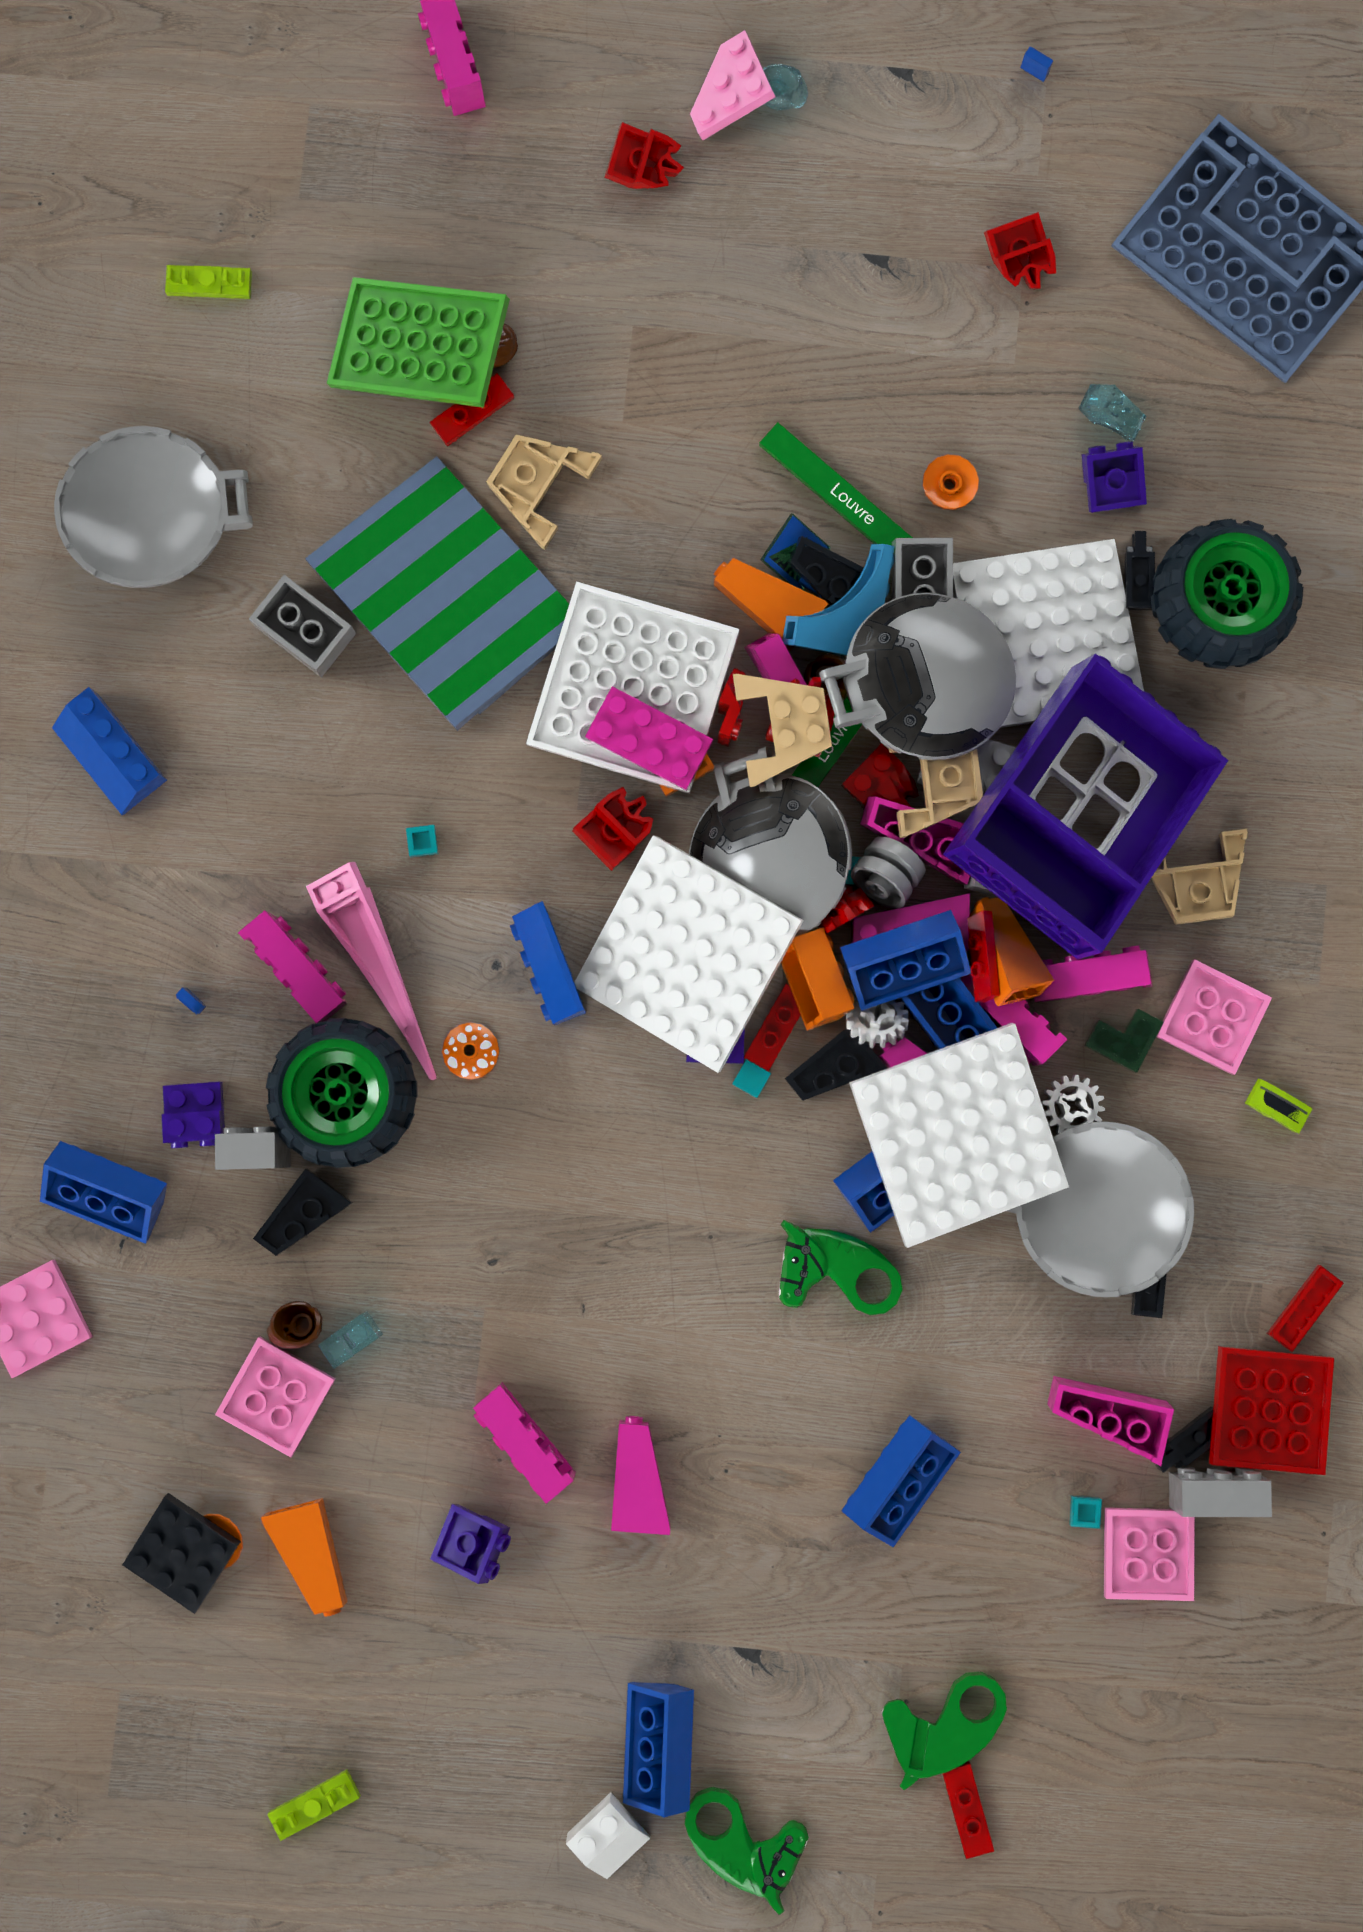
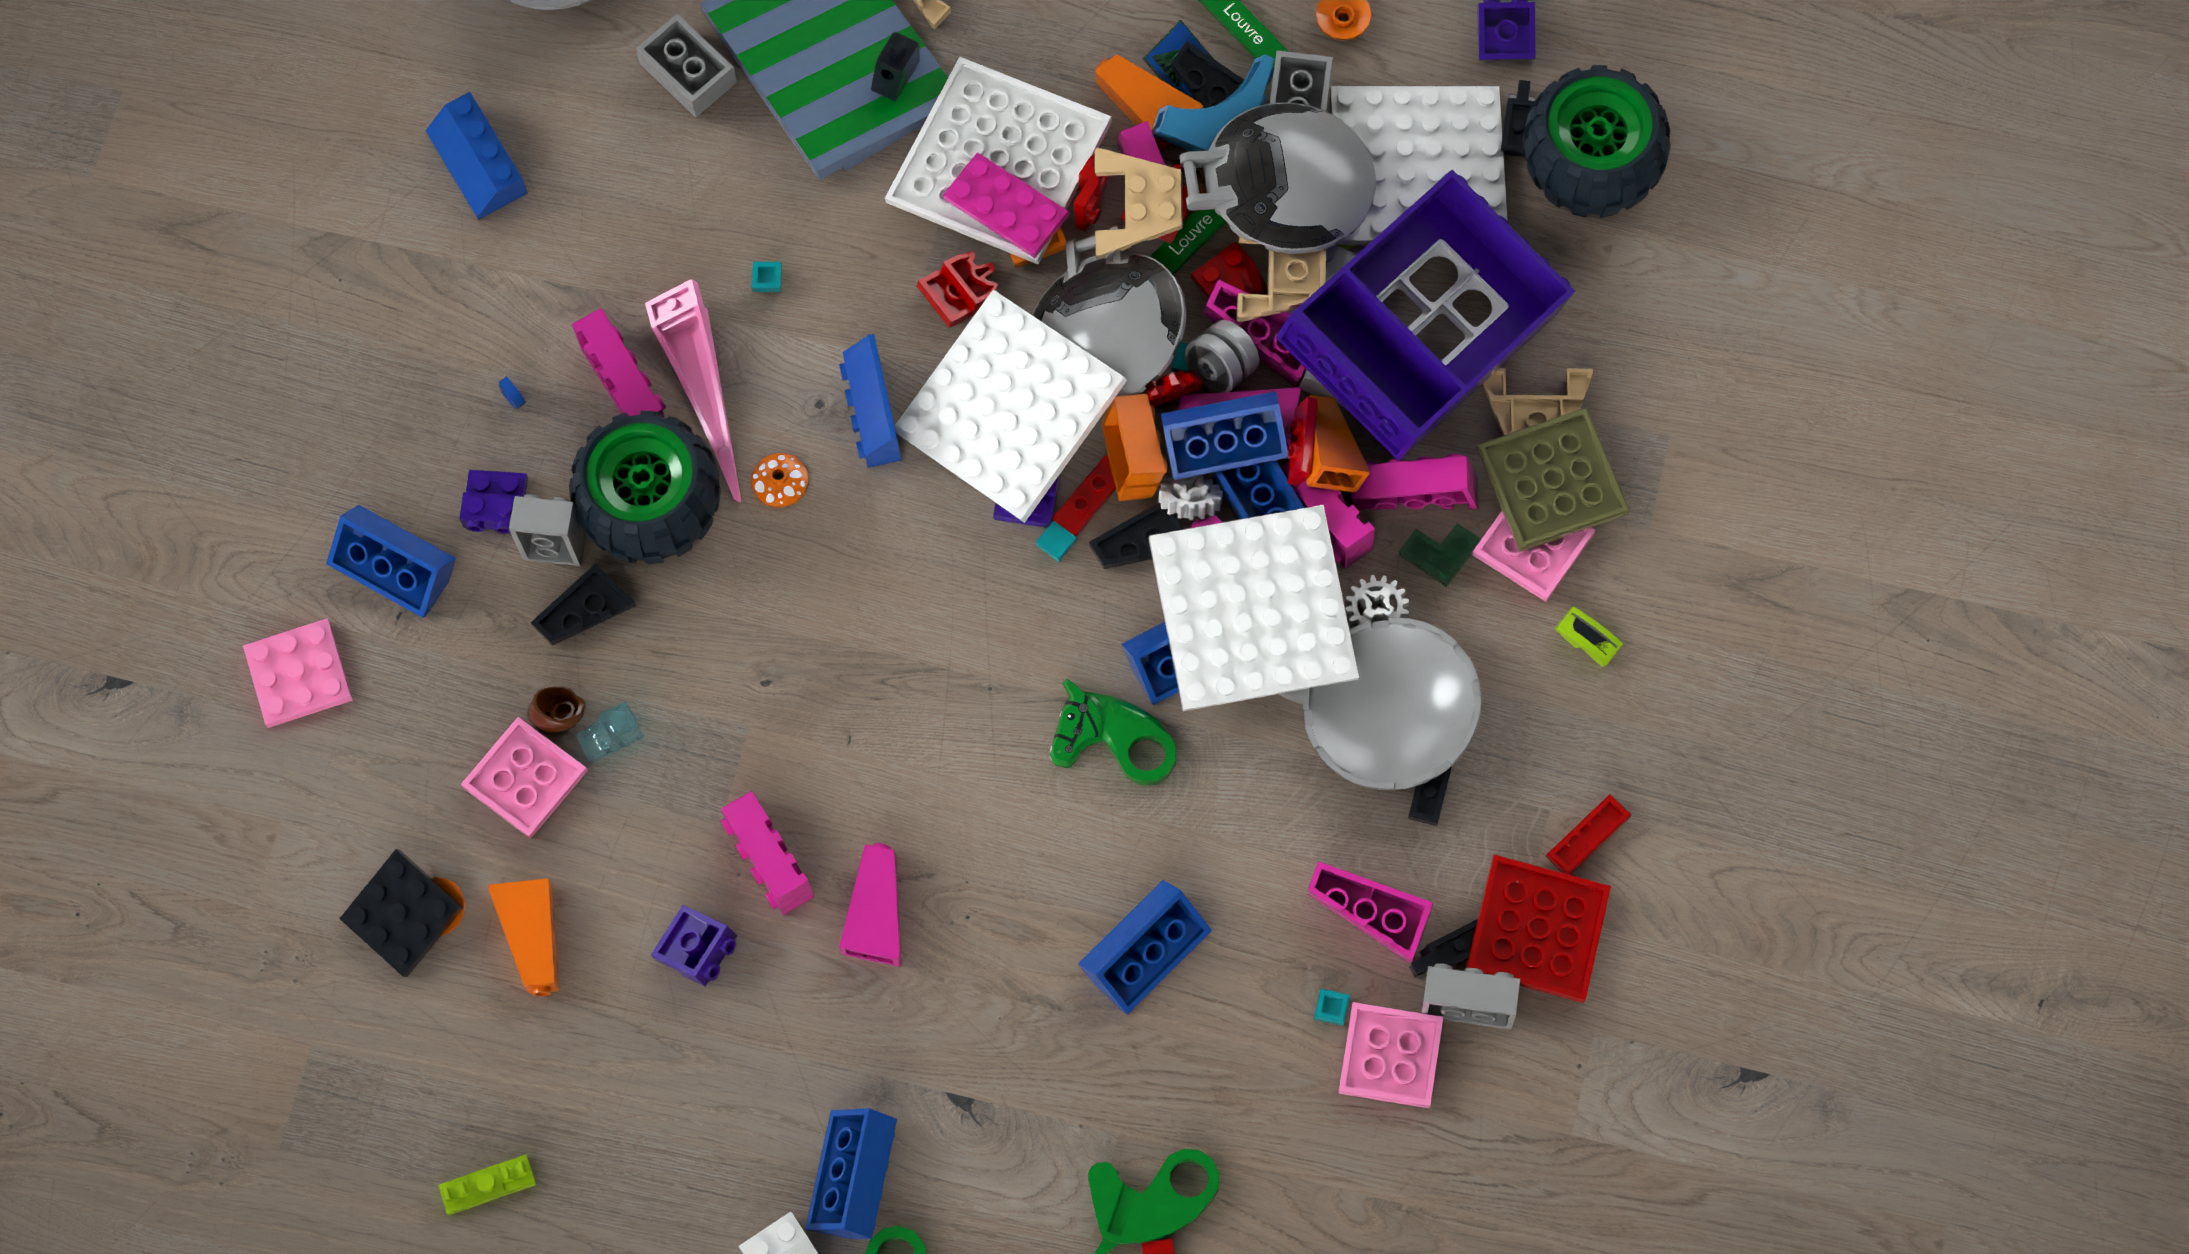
camera: 15 degrees right, 15 degrees down
(514, 599) = (900, 58): none -> black torso
(1226, 953) = (1553, 479): none -> olive tile

